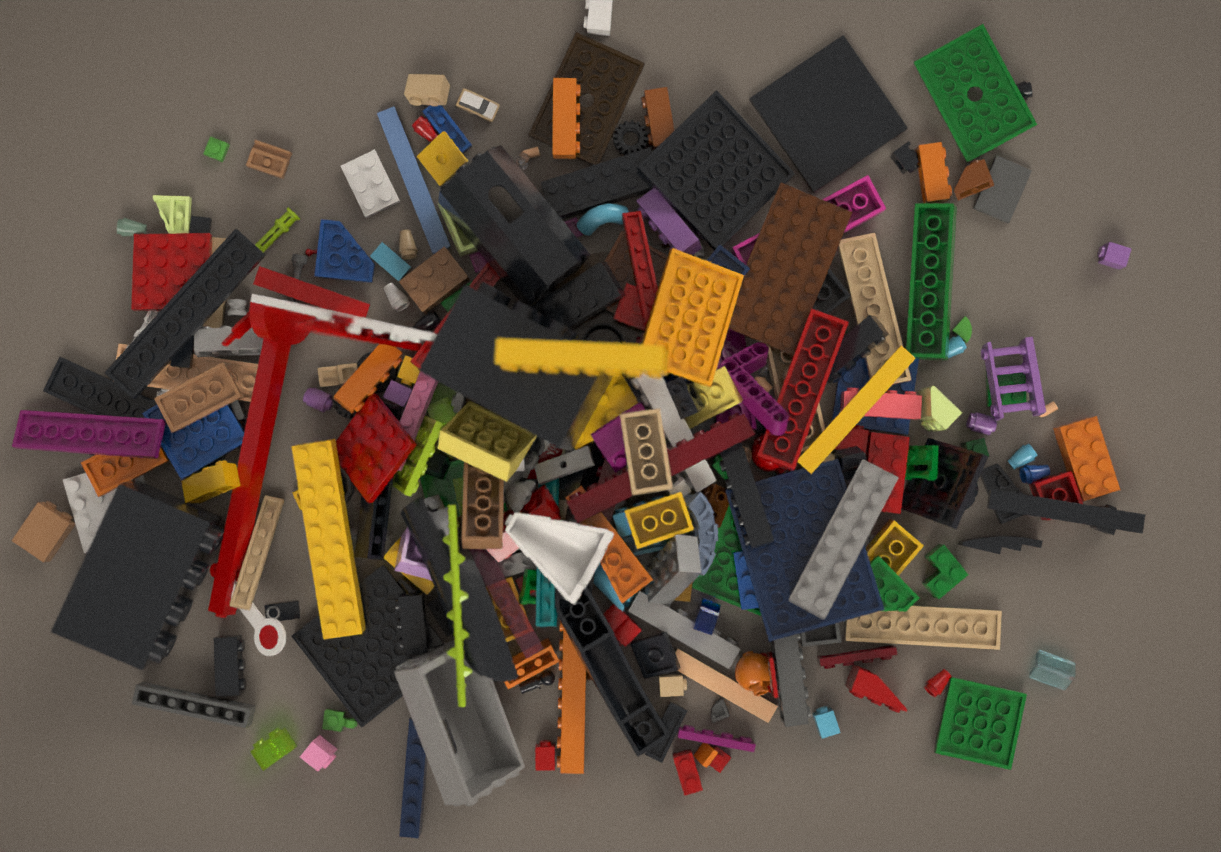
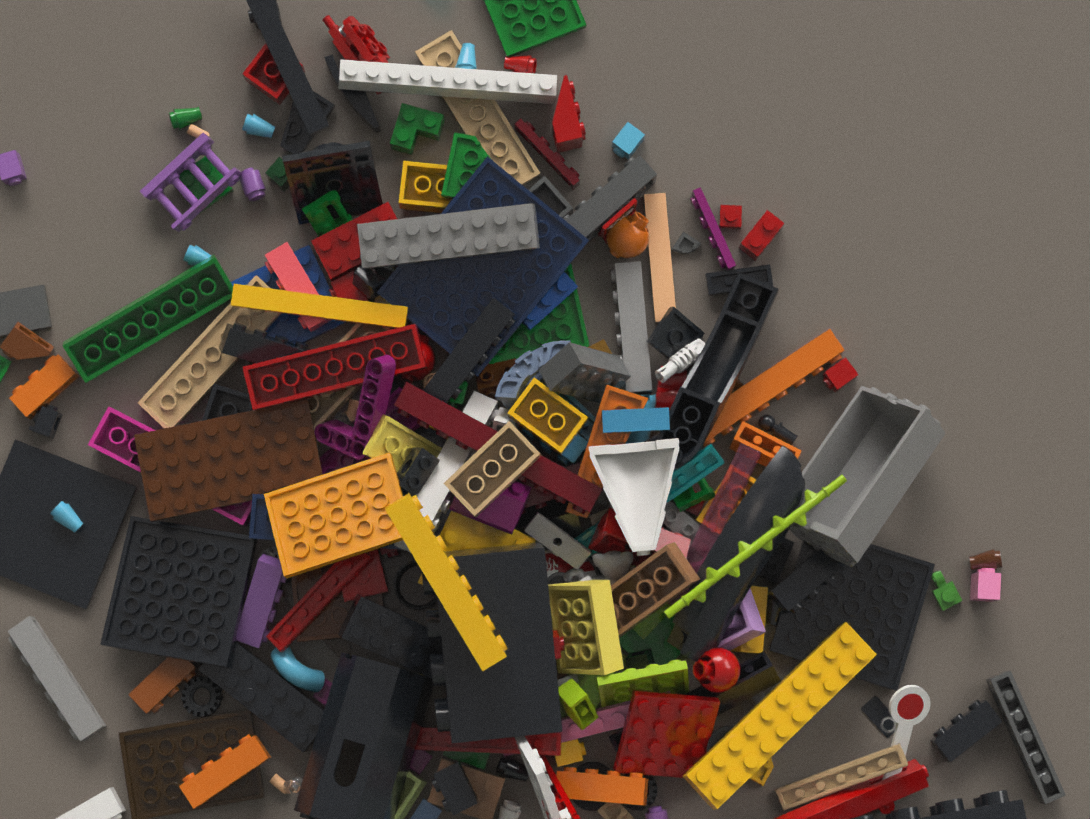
camera: 120 degrees left, 5 degrees down
(274, 748) = (1012, 633): clear neon green brick -> none
(337, 768) = (987, 559): none -> reddish brown cone
(389, 516) = (717, 672): none -> red brick
(398, 393) = (598, 748): medium lavender brick -> none
(413, 786) = (947, 480): dark blue brick -> none
(437, 270) = (455, 788): none -> black brick
(437, 398) = (577, 704): none -> lime brick
(488, 414) = (558, 644): none -> red plate
(611, 583) = (635, 420): none -> dark azure tile
(634, 647) = (680, 360): none -> white hinge
(672, 685) = (692, 303): tan brick -> none
(705, 754) = (734, 230): orange tile -> none
(706, 616) = (606, 314): clear blue brick -> none
(713, 44) = (56, 678): none -> light grey brick
(827, 126) = (66, 516): none -> medium azure cone
(936, 410) = (269, 232): yellowish green slope -> none
(962, 619) = (447, 81): none -> white brick
(963, 329) = (174, 259): bright green tile -> none
(968, 644) = (467, 57): none -> medium azure cone
(1030, 571) = (356, 41): none -> red piece
(1032, 473) = (267, 107): blue cone -> none
(1066, 407) = (183, 117): none -> green cone
(1087, 457) = (219, 68): orange brick -> none

